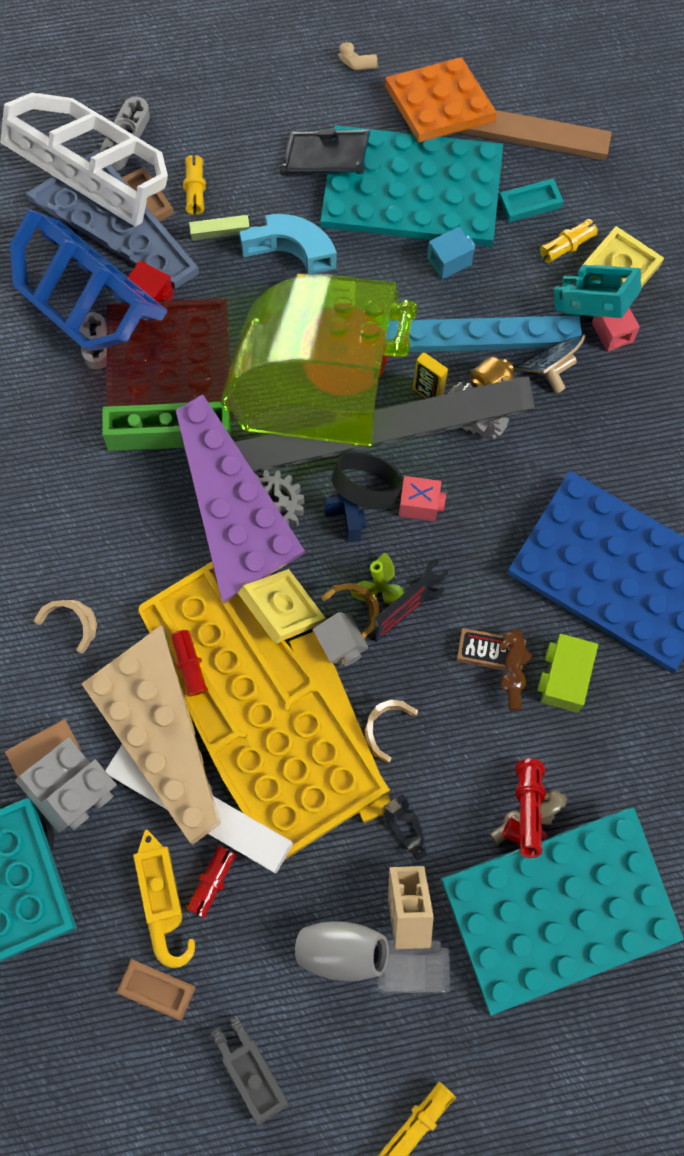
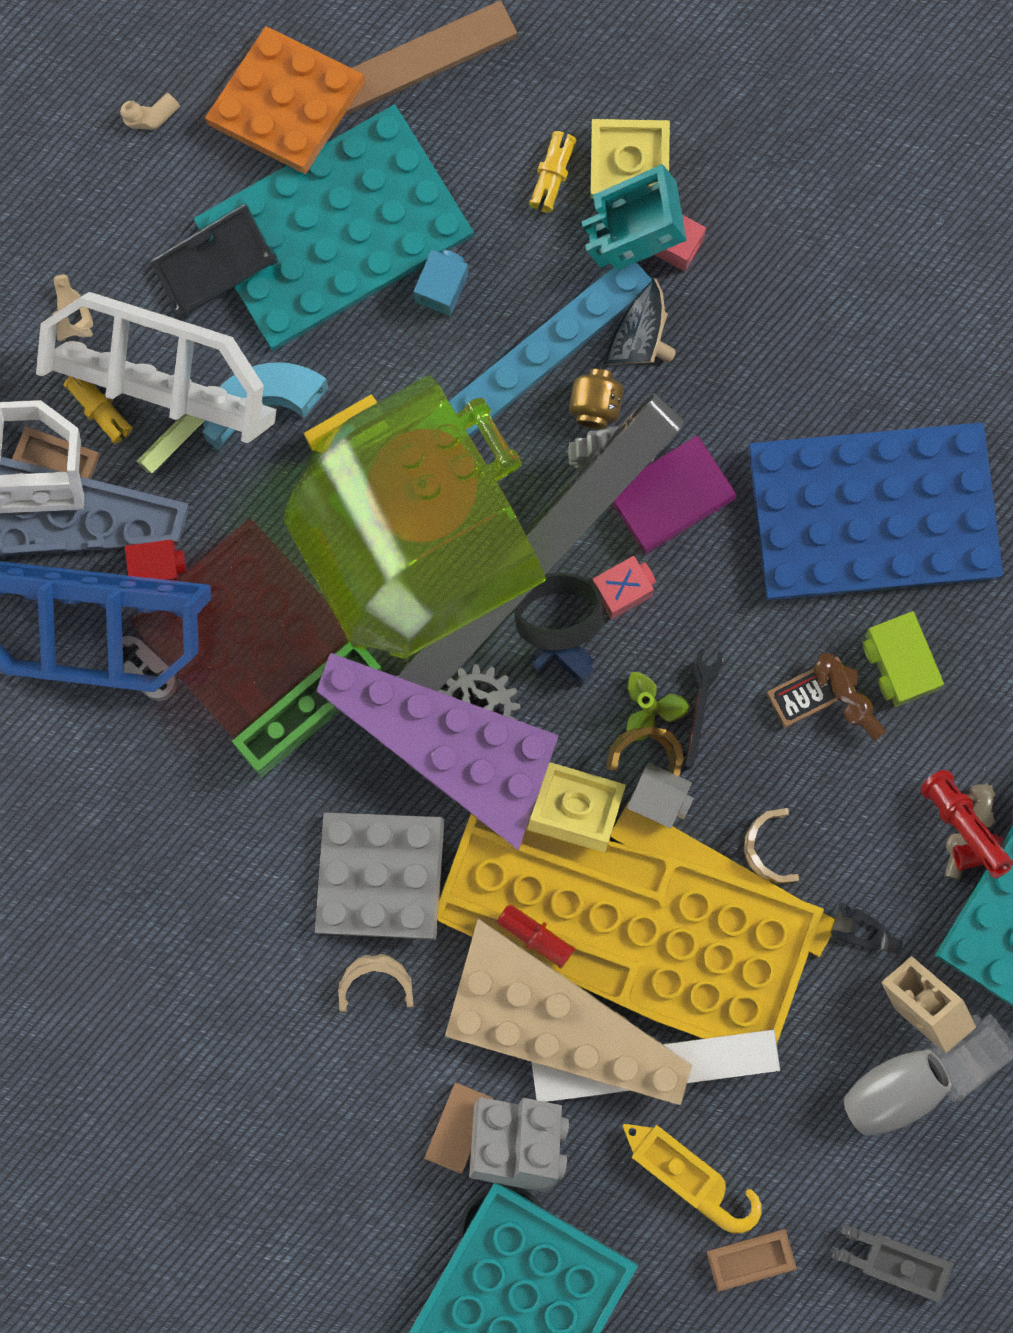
camera: 35 degrees left, 10 degrees up
(127, 558) = (379, 875): none -> light grey plate
(209, 129) = (66, 296): none -> tan helmet
(211, 881) = (722, 1124): red pin -> none
(236, 187) = (143, 380): none -> white plate
(429, 377) = (537, 450): tile -> none
(495, 467) = (673, 495): none -> magenta piece
(531, 200) = (475, 150): teal tile -> none

